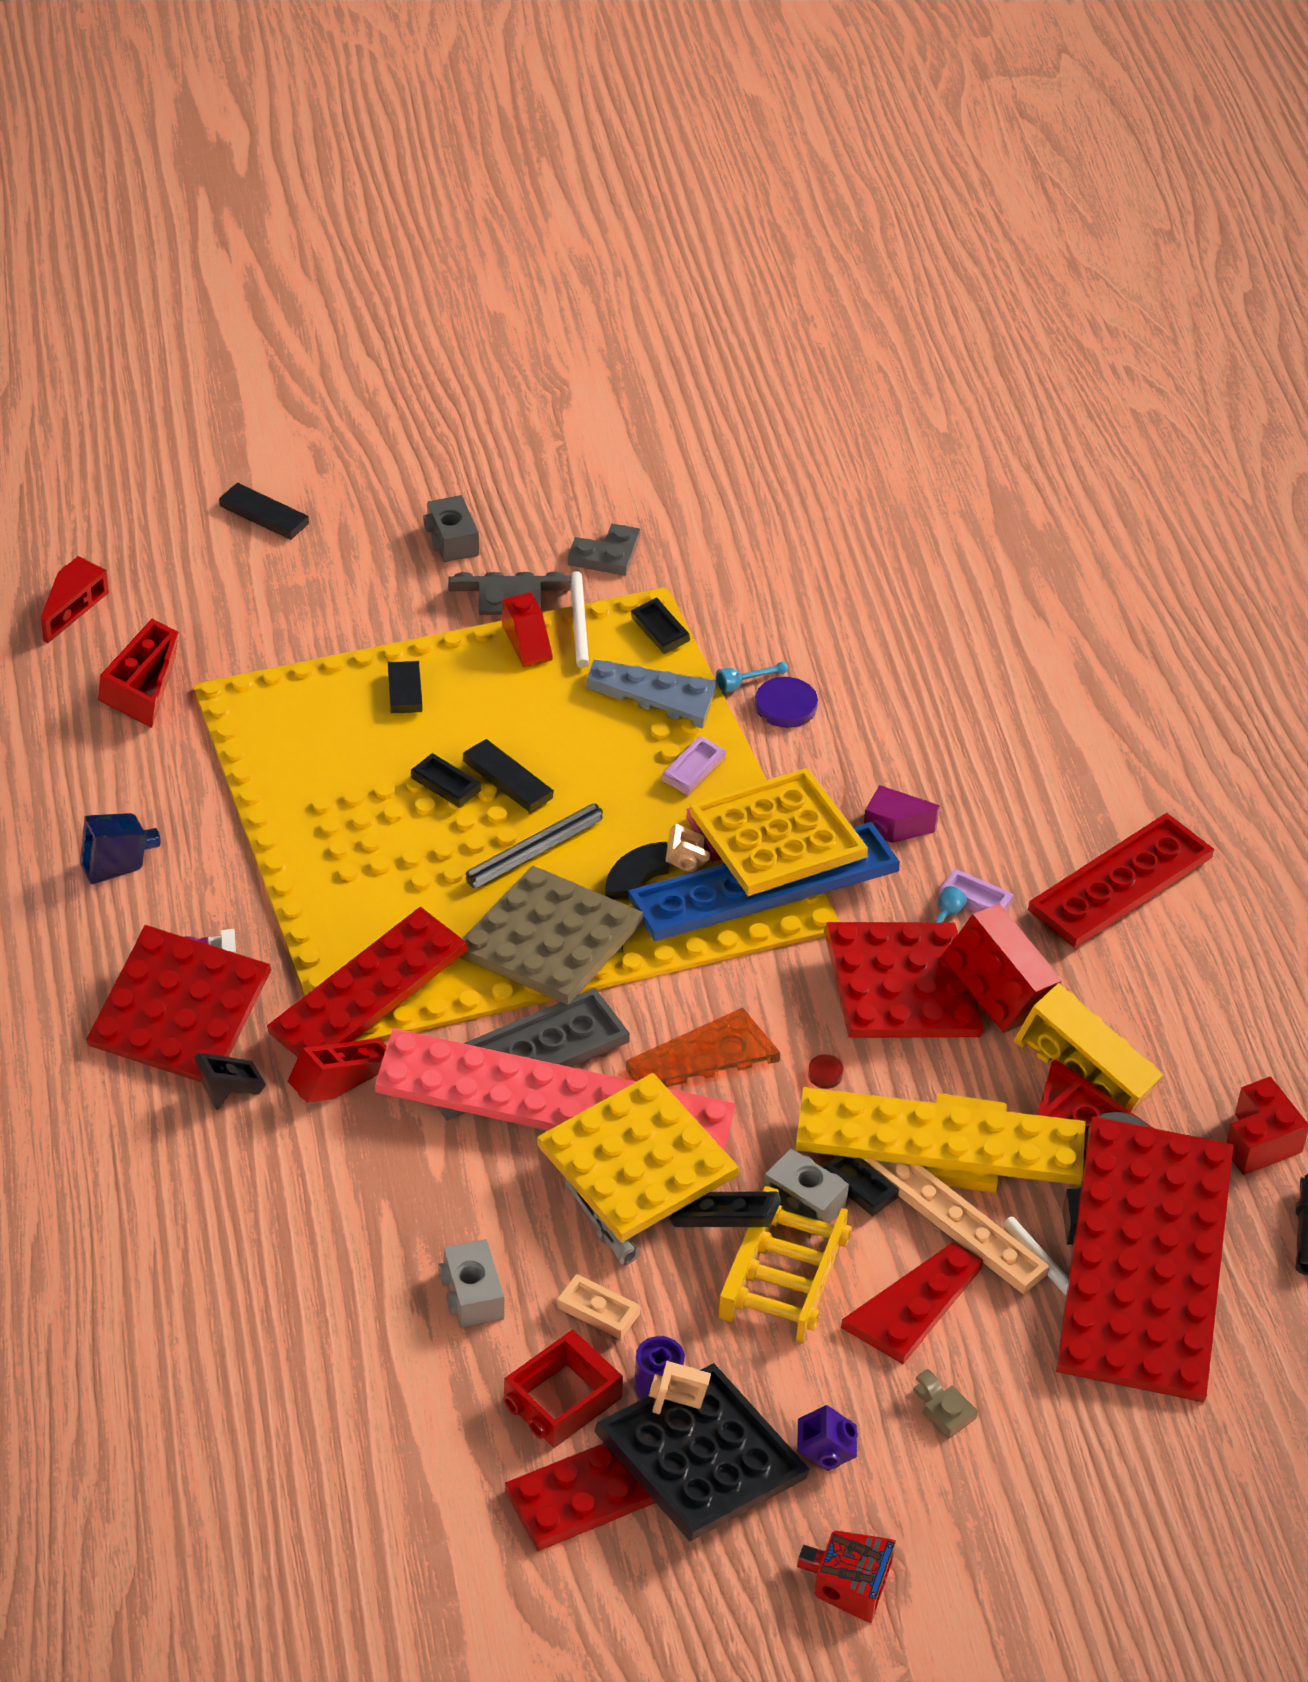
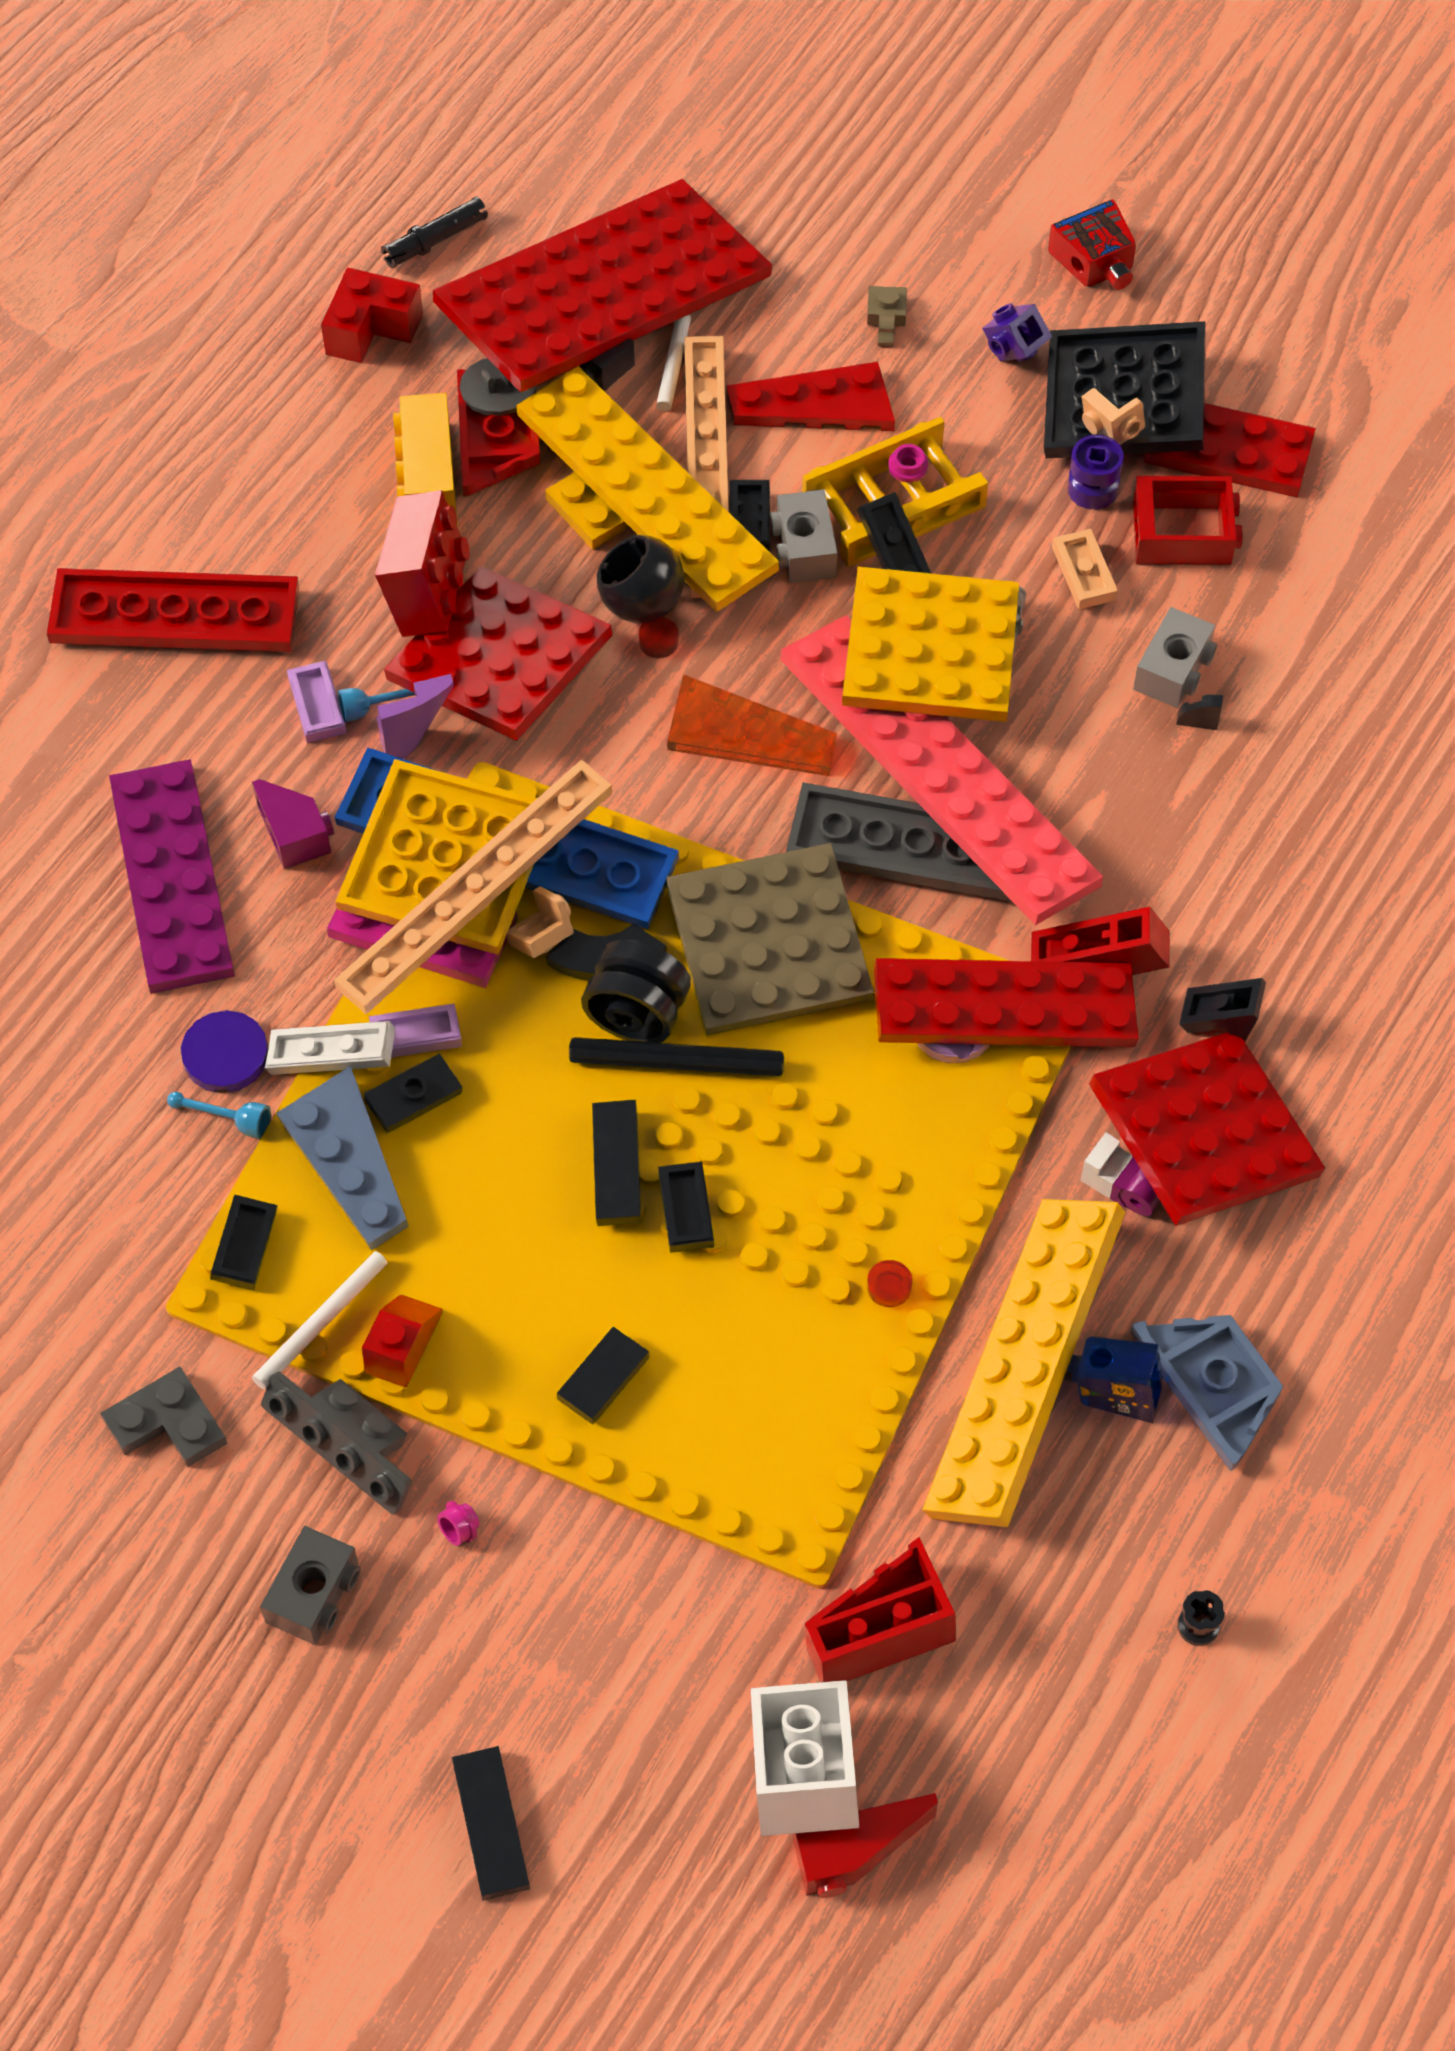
camera: 135 degrees left, 15 degrees up
(62, 893) = (1215, 1379): none -> sand blue wing
(124, 586) = (804, 1758): none -> white brick
(178, 828) = (1024, 1363): none -> yellow plate
(292, 818) = (889, 1283): none -> clear red tile
(409, 594) = (458, 1523): none -> dark pink plate
(418, 1262) = (1202, 713): none -> black tile
(585, 834) = (636, 991): none -> black wheel
(656, 735) = (413, 1093): none -> black plate
(727, 725) = (330, 1048): none -> white tile
(734, 812) = (473, 887): none -> light nougat plate
(788, 1261) = (908, 455): none -> dark pink plate
(866, 1064) = (640, 579): none -> black wheel
(899, 892) = (407, 720): none -> medium lavender slope
(931, 759) = (171, 876): none -> magenta plate

